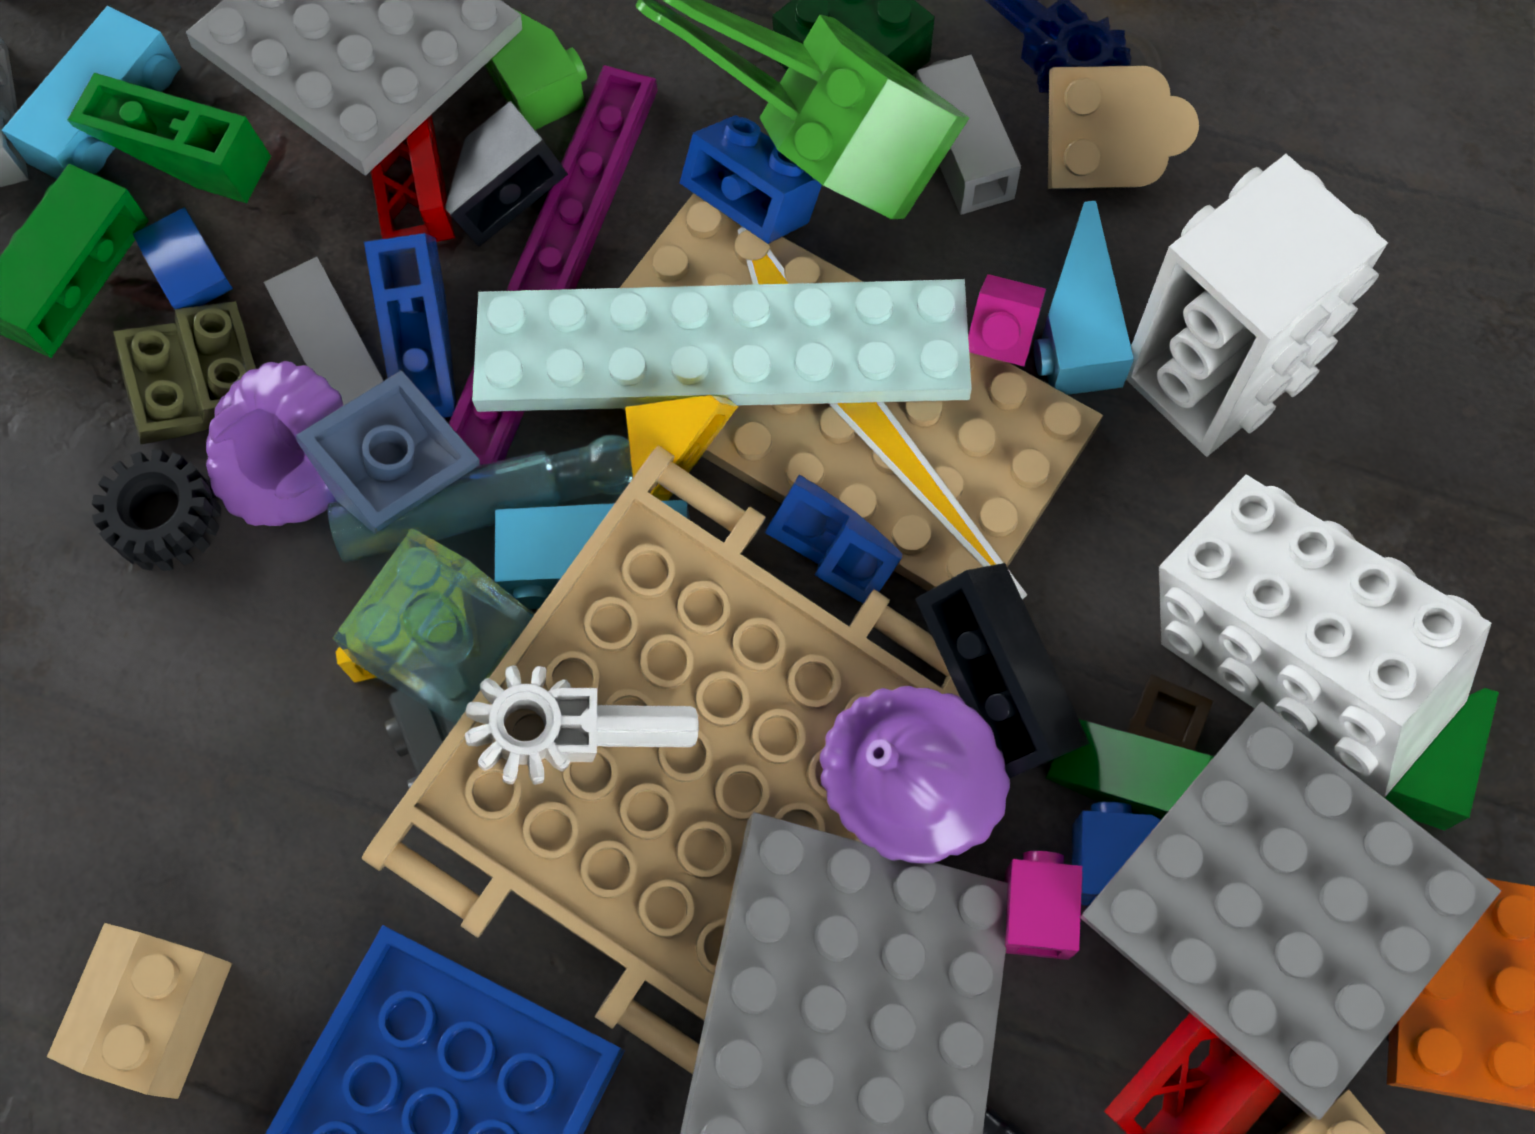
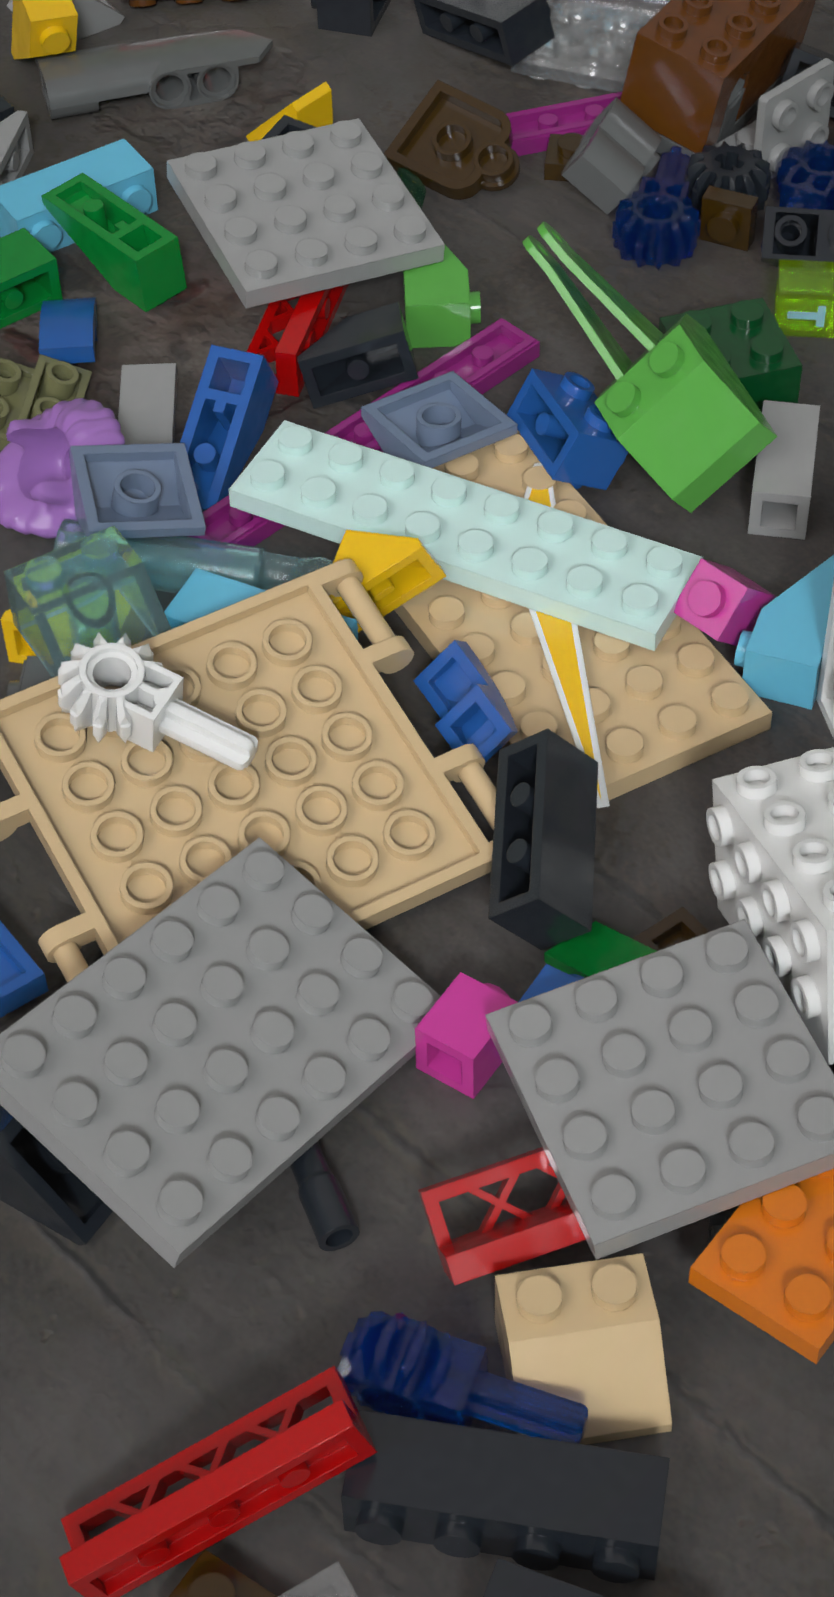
camera: 25 degrees right, 20 degrees down
(620, 224) = (436, 421): none -> sand blue slope
(914, 774) = (416, 873): medium lavender piece -> none

